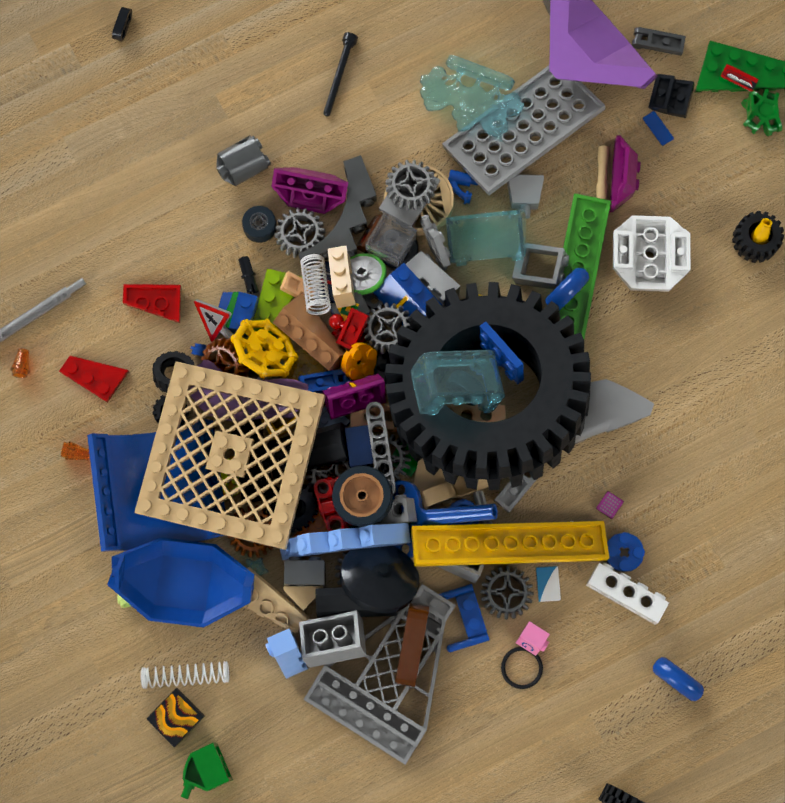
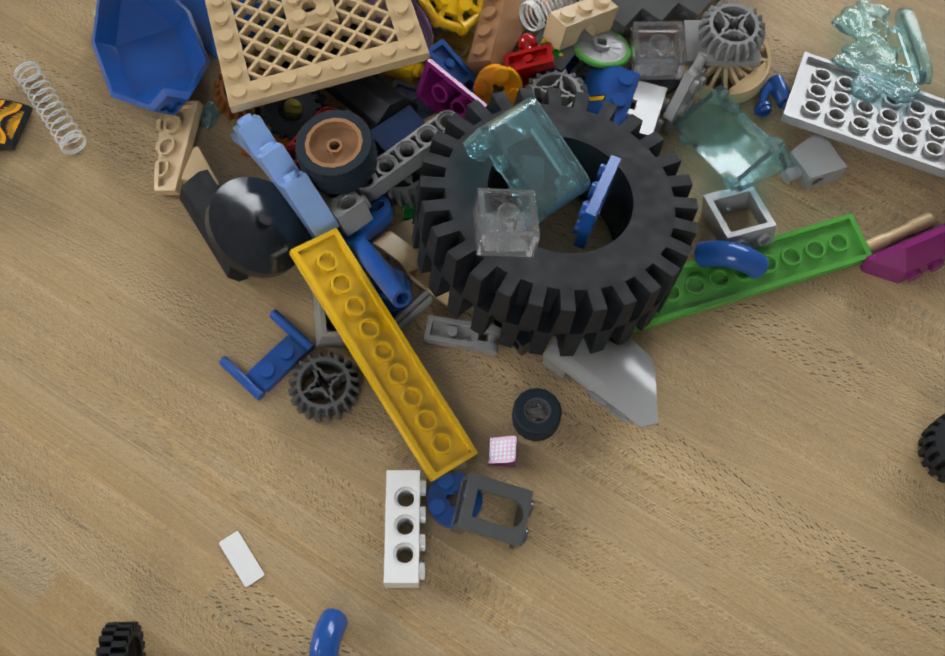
camera: 60 degrees right, 10 degrees down
(286, 652) = (122, 182): light blue wedge -> none
(305, 572) = (222, 153): dark grey brick -> none
(332, 639) = (162, 222): light grey brick -> none
(369, 715) = (98, 307): light grey wing -> none
(412, 644) = (197, 300): reddish brown beam -> none
(504, 421) = (506, 222): none -> clear brick
(514, 684) = (246, 479): black tyre -> none
(533, 639) = (283, 445): bright pink brick -> none
(548, 584) = (364, 433): sticker -> none
(589, 703) = (241, 559): none -> white sticker
(603, 466) = (539, 404): none -> black wheel
(636, 546) = (465, 522): none -> dark grey panel
(661, 237) = (851, 305): white piece -> none

